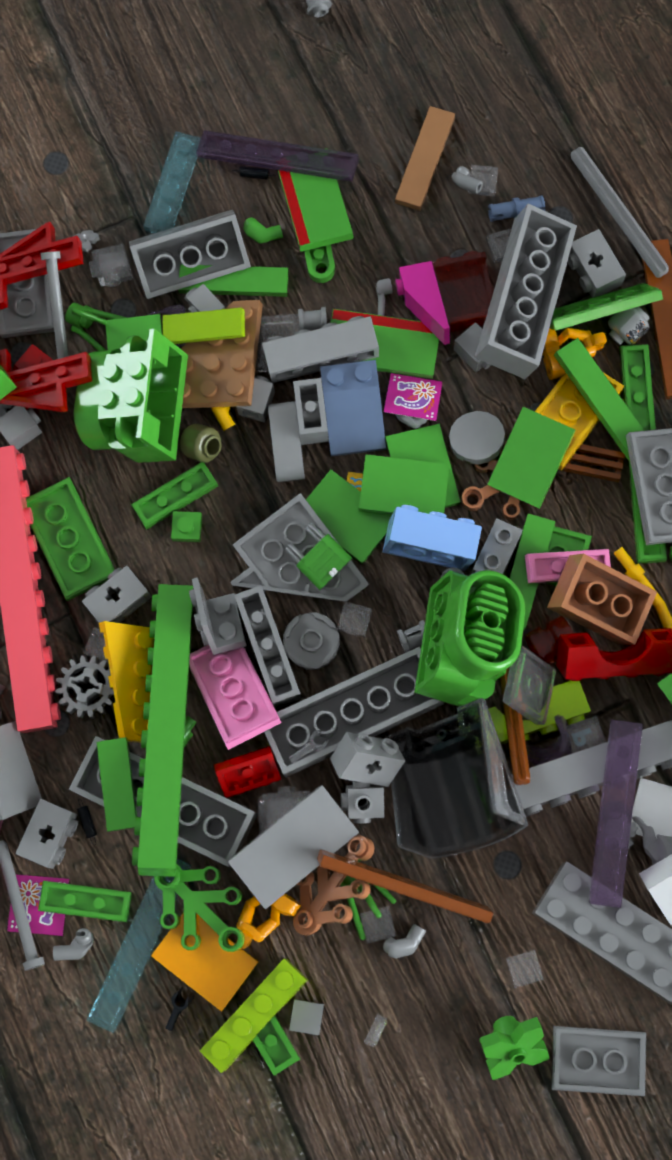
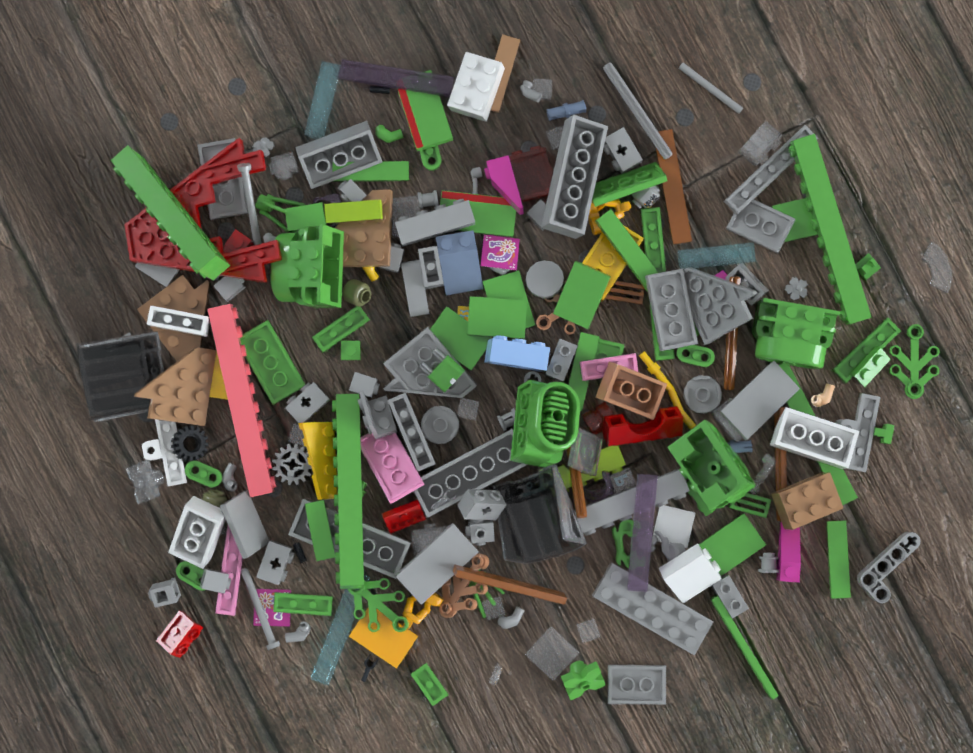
camera: 15 degrees left, 10 degrees up
(208, 573) = (364, 383): none -> light grey brick
(253, 1015) = (418, 669): lime arch -> none
(306, 1017) = (451, 668): light grey tile -> none
(389, 169) = (476, 86): none -> white brick
(466, 1002) = (552, 653): none -> clear tile
(587, 809) = (625, 527): none -> bright green helmet

